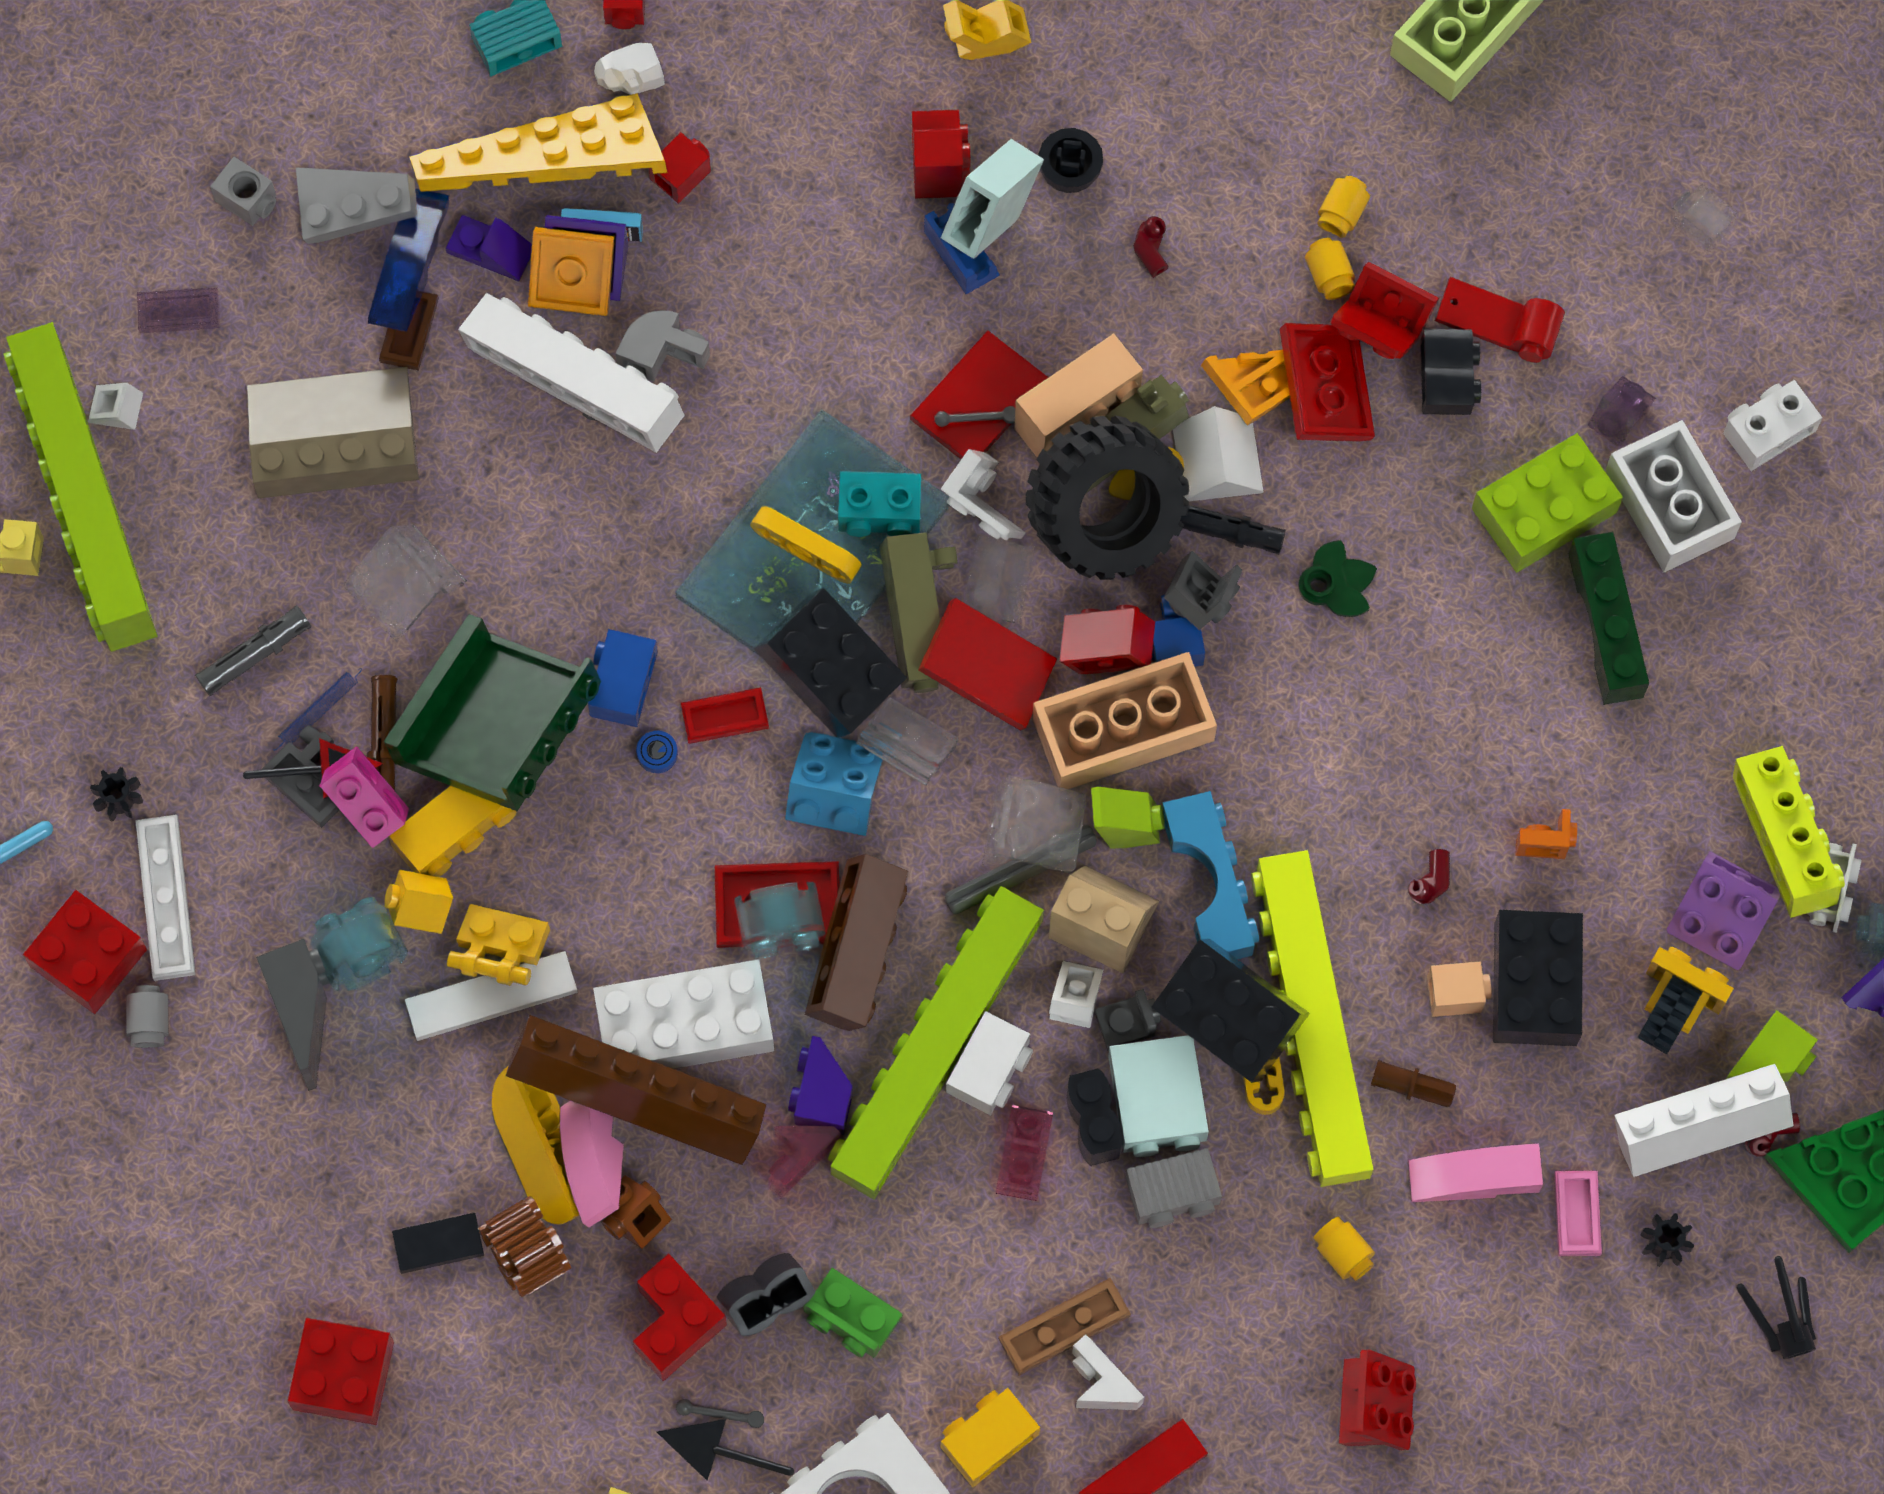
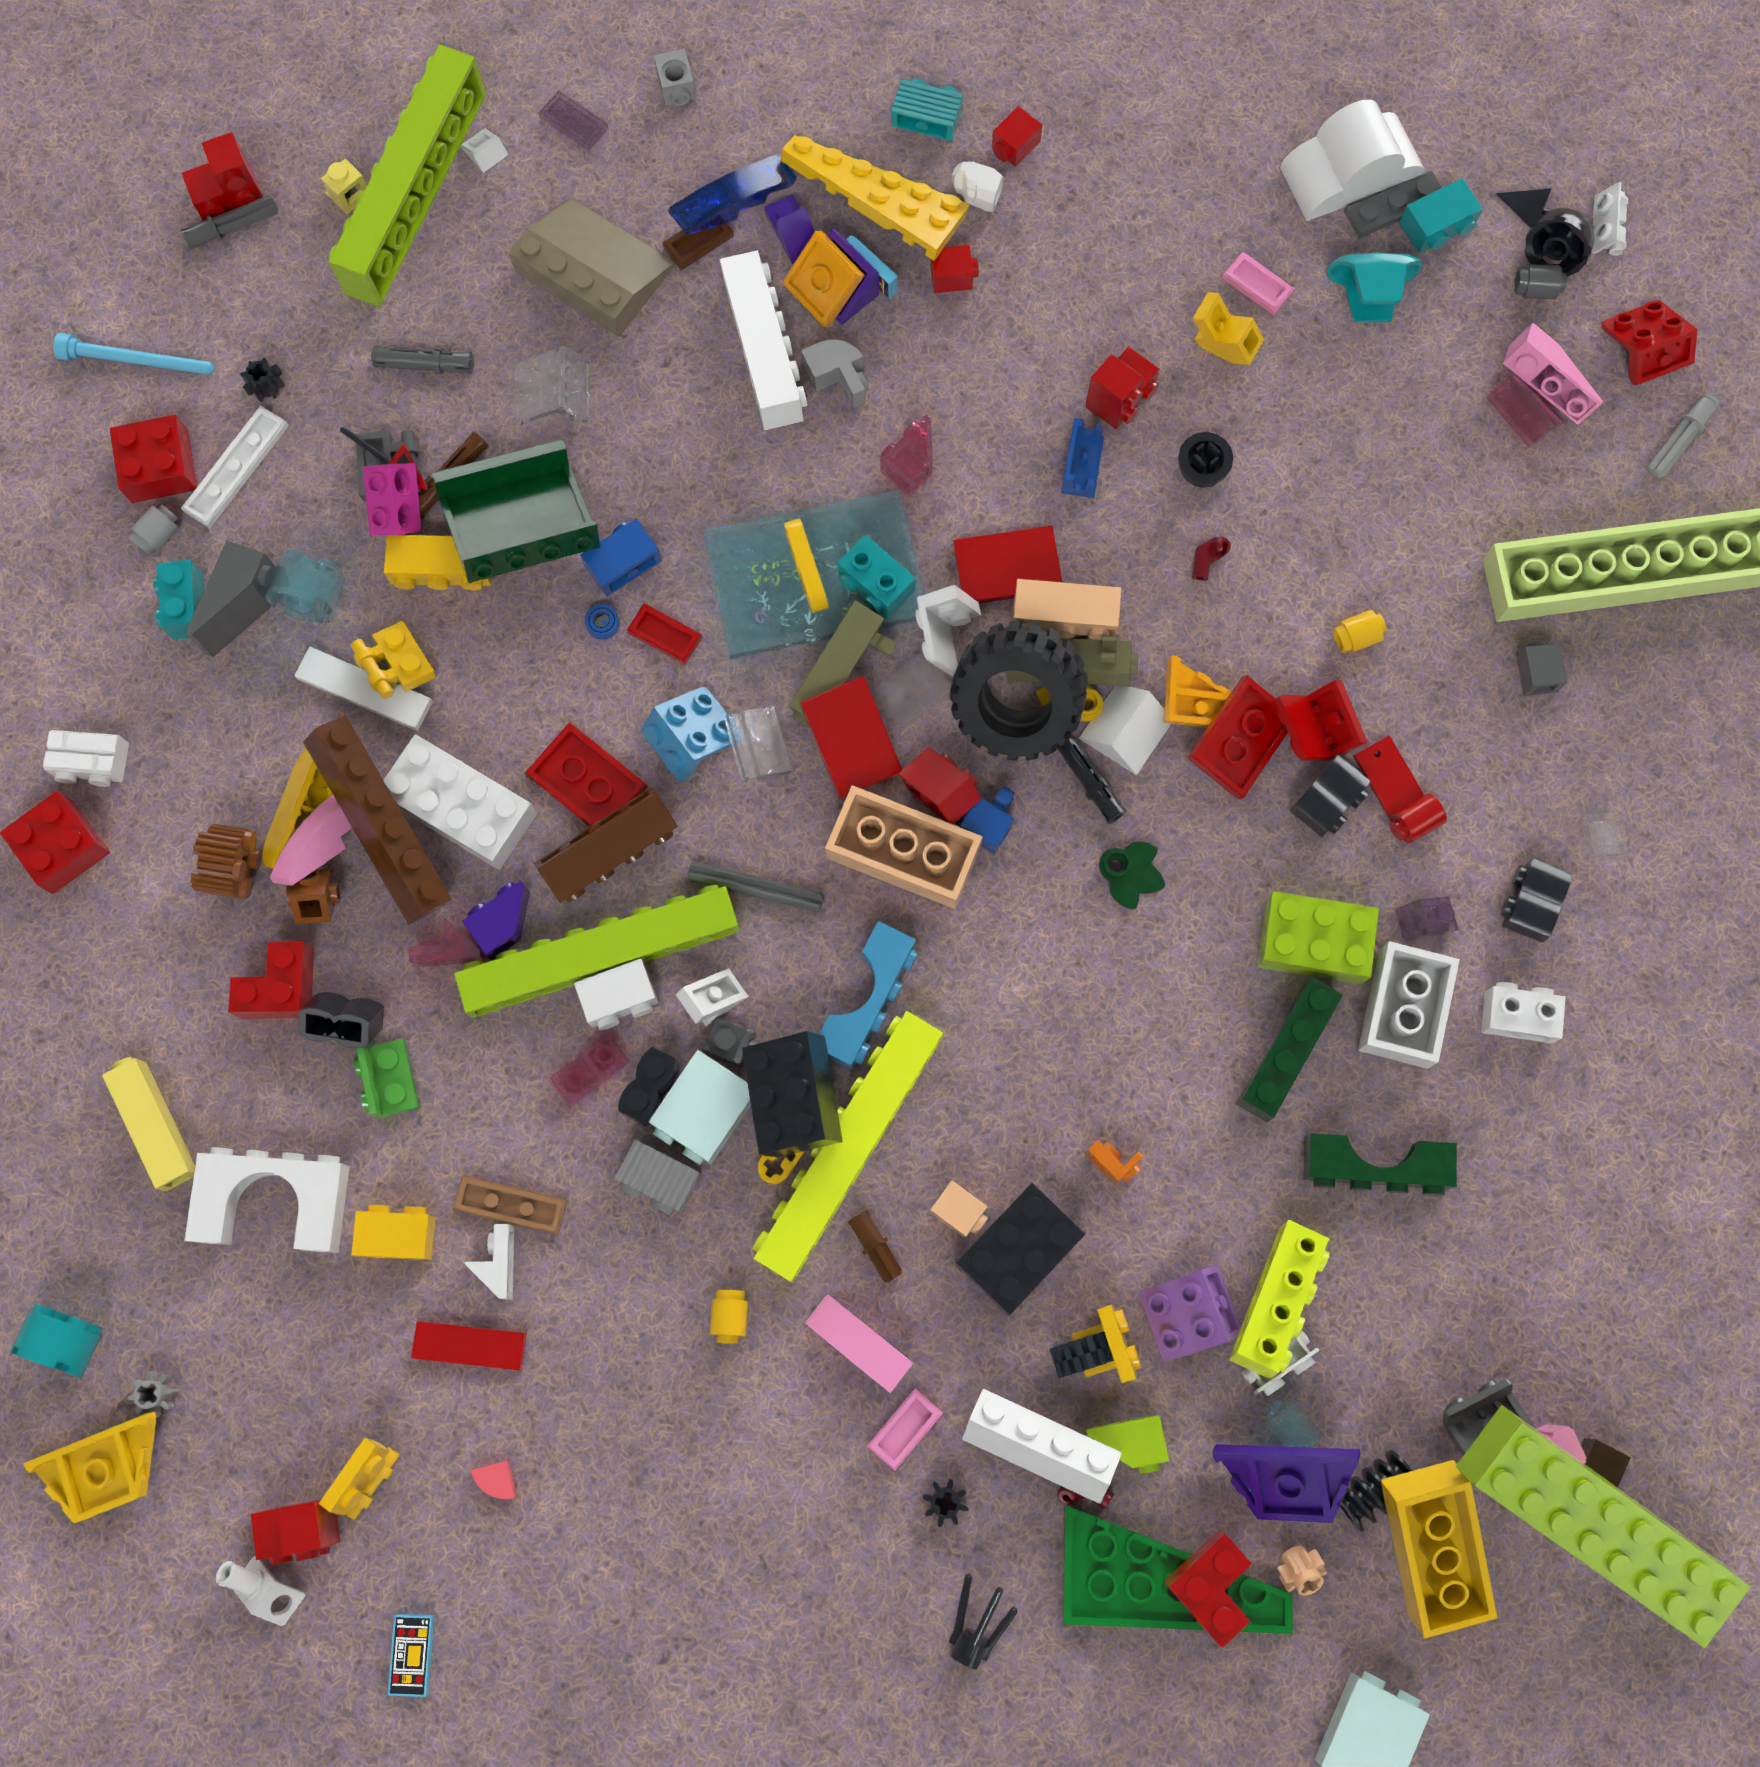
camera: 45 degrees right, 5 degrees up
(243, 1056) = (179, 592): none -> teal brick
(292, 1274) = (86, 757): none -> white brick
(315, 704) = (429, 423): blue piece -> none
(351, 201) = (731, 133): light grey wing -> none
(419, 901) = (367, 591): yellow brick -> none
(438, 1243) = (187, 811): black tile -> none
(700, 1444) = (222, 1079): black piece -> none
(754, 1419) = (270, 1092): dark grey hinge -> none
(780, 918) = (566, 786): clear light blue brick -> none
(806, 373) = (910, 459): none -> clear pink slope
(830, 663) = (750, 652): black brick -> none
(992, 198) = (1125, 439): light aqua brick -> none
(1007, 415) = (970, 558): dark grey hinge -> none
(1034, 825) = (787, 867): clear bracket -> none
(1100, 917) = (775, 958): tan slope -> none
(1126, 817) = (845, 909): lime slope -> none
(1200, 592) = (1030, 803): dark grey bracket -> none
(1330, 268) = (1313, 665): yellow brick -> none
(1377, 1401) = (655, 1438): red bracket -> none
(1435, 882) = (1013, 1125): dark red arm -> none
(1526, 112) = (1541, 668): none -> dark grey brick
(1698, 318) = (1536, 899): none -> black brick
(1728, 679) = (1426, 1166): none -> dark green arch

